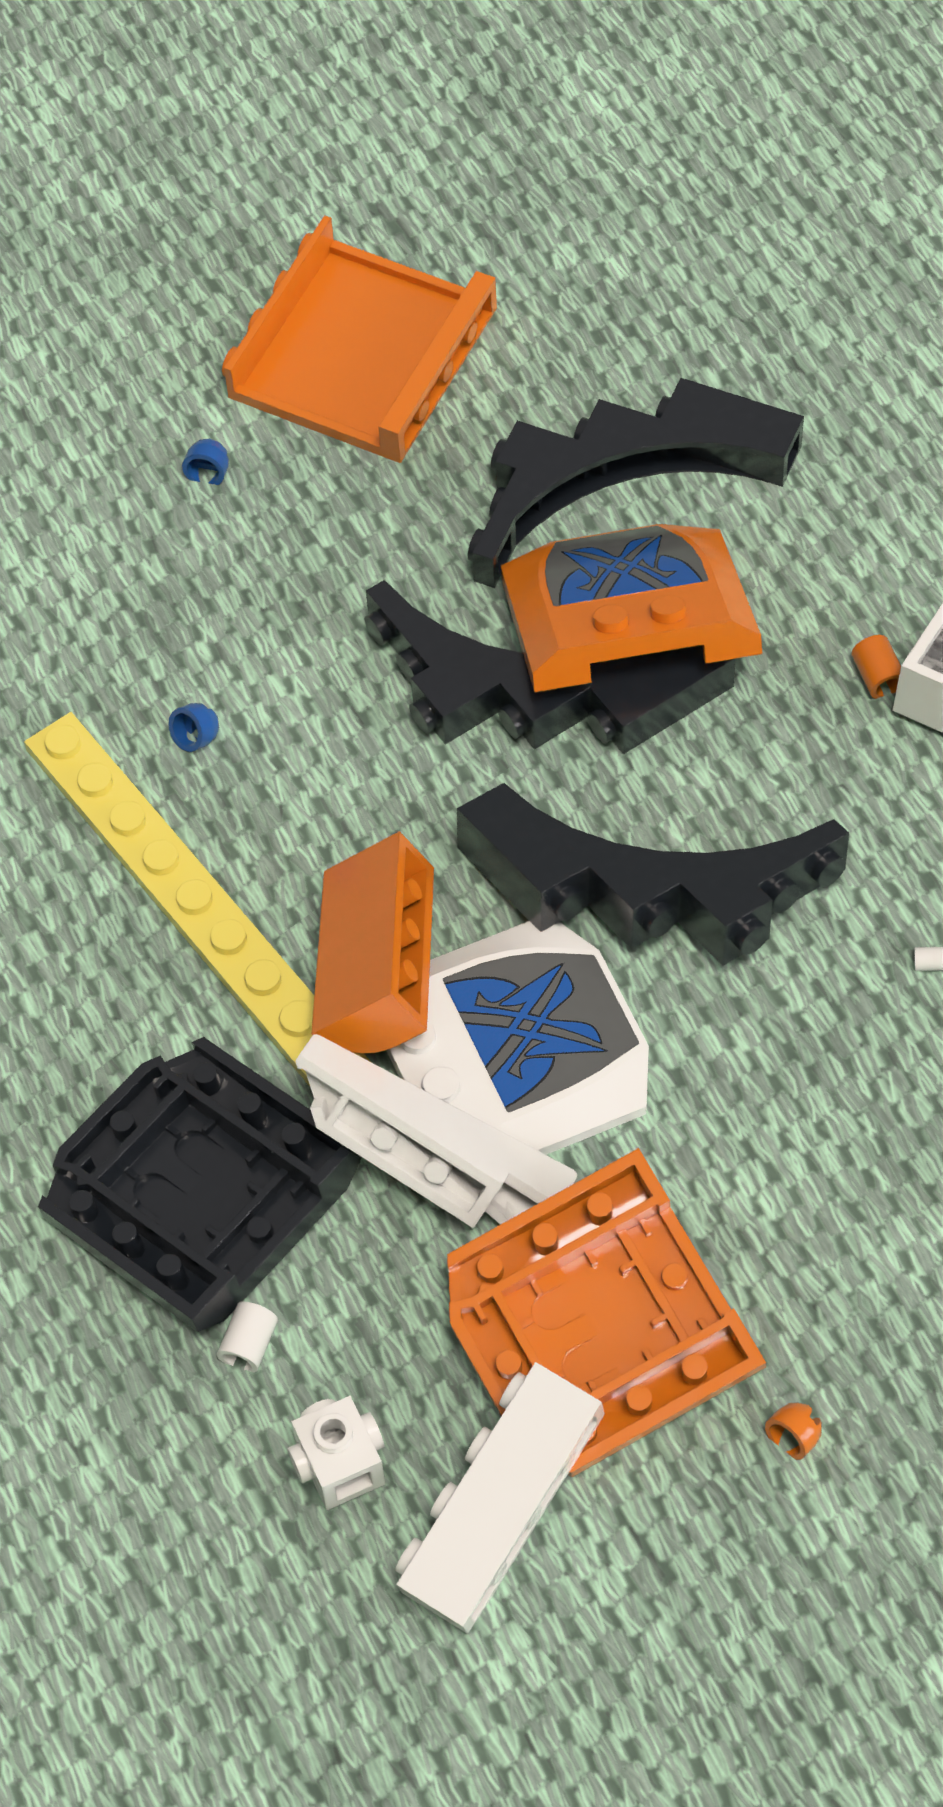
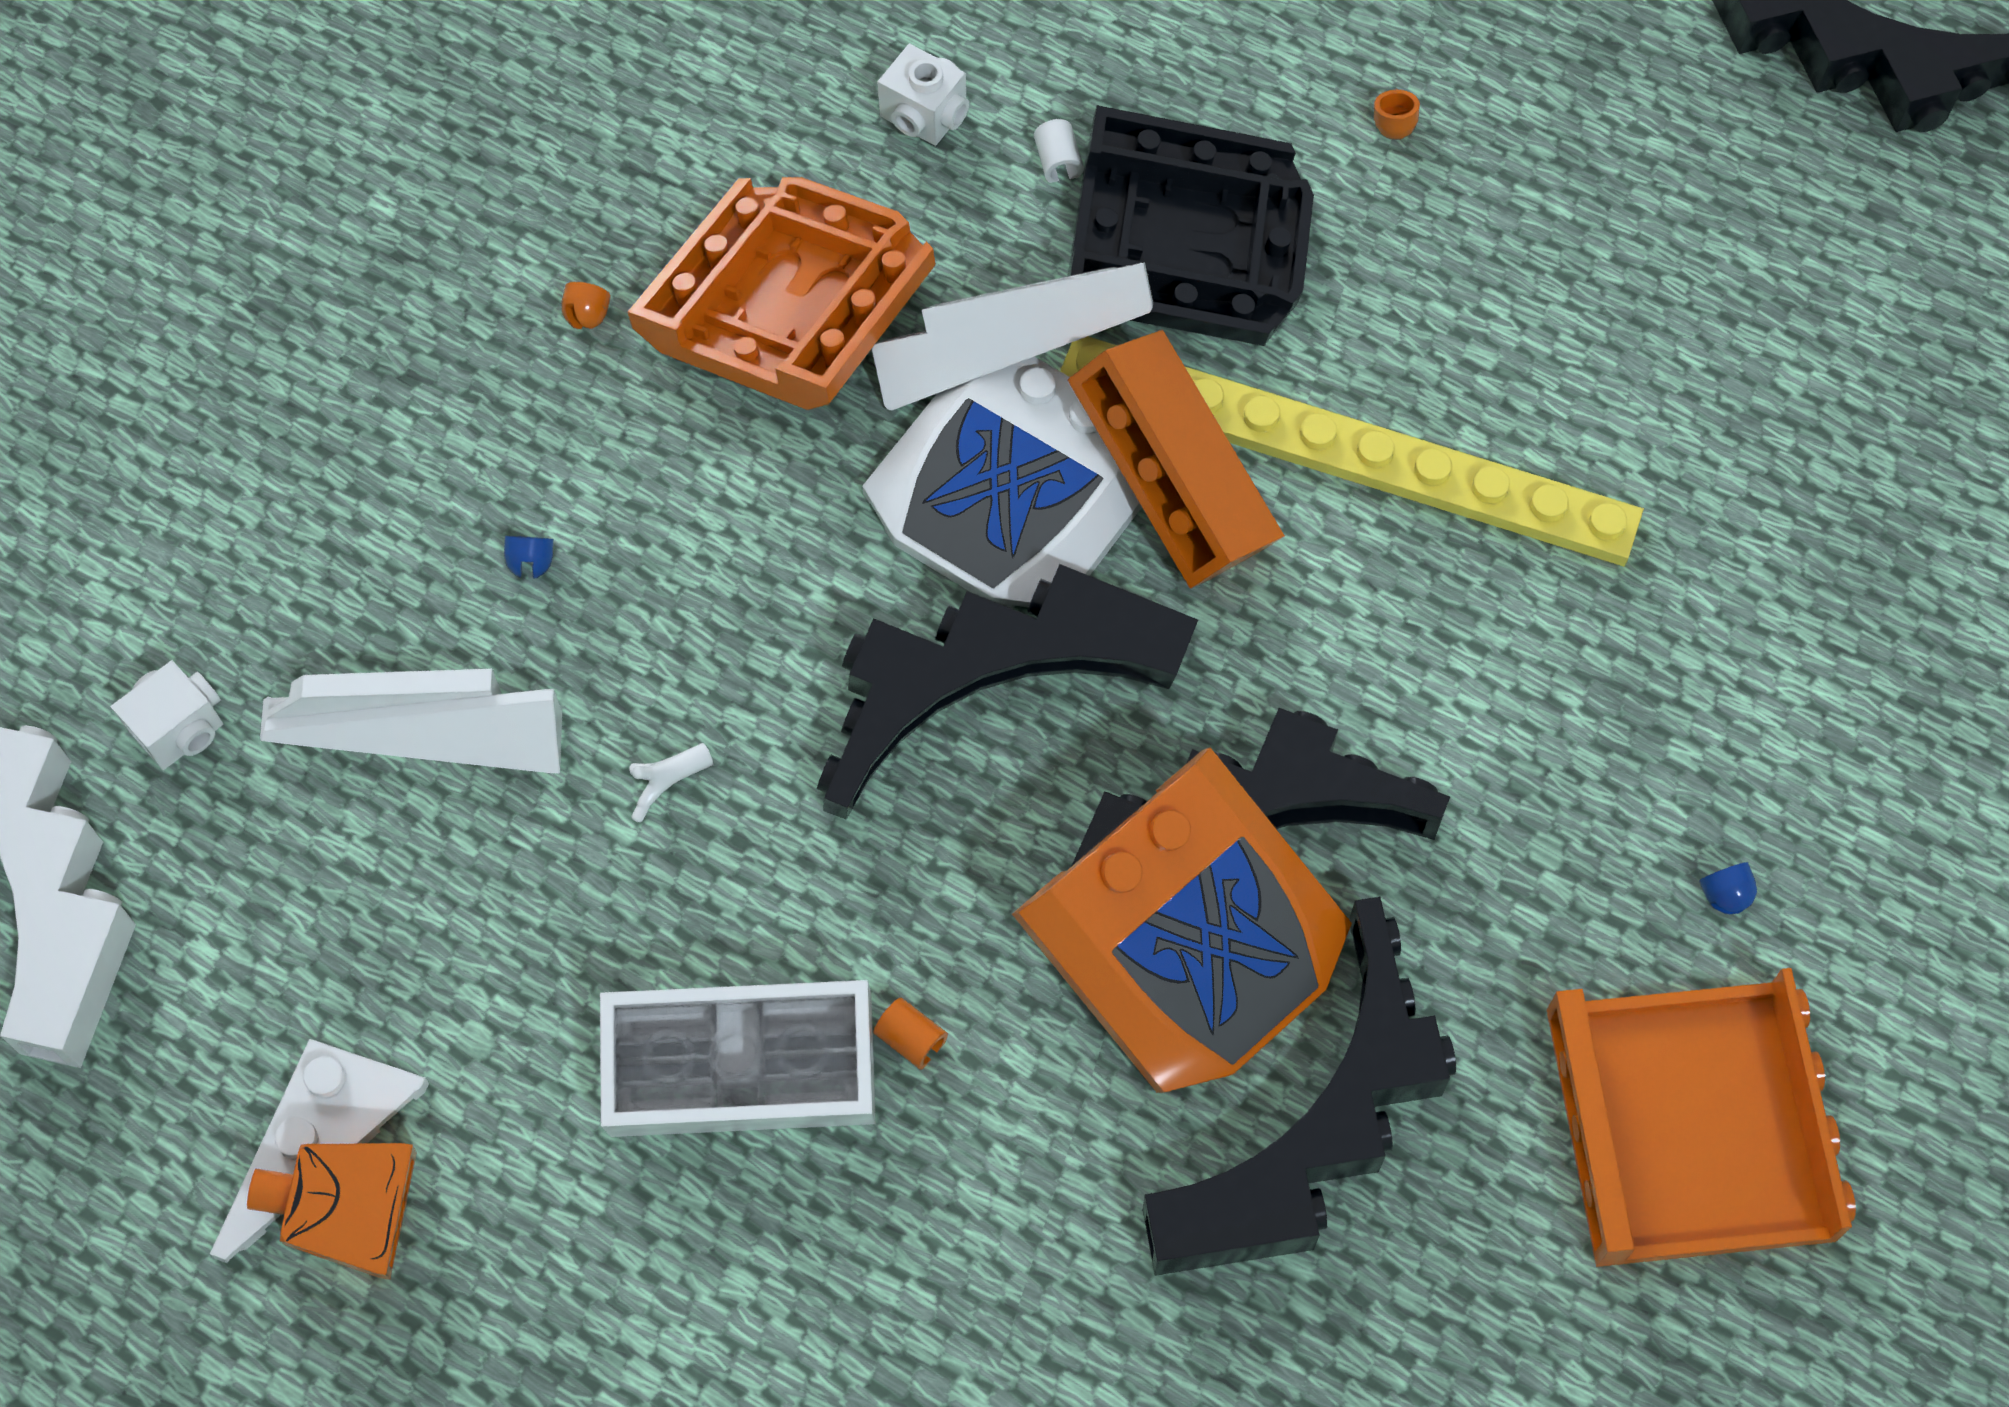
camera: 145 degrees right, 5 degrees up
(190, 718) = (1505, 605): blue hinge -> none
(499, 1497) = (775, 120): white brick -> none

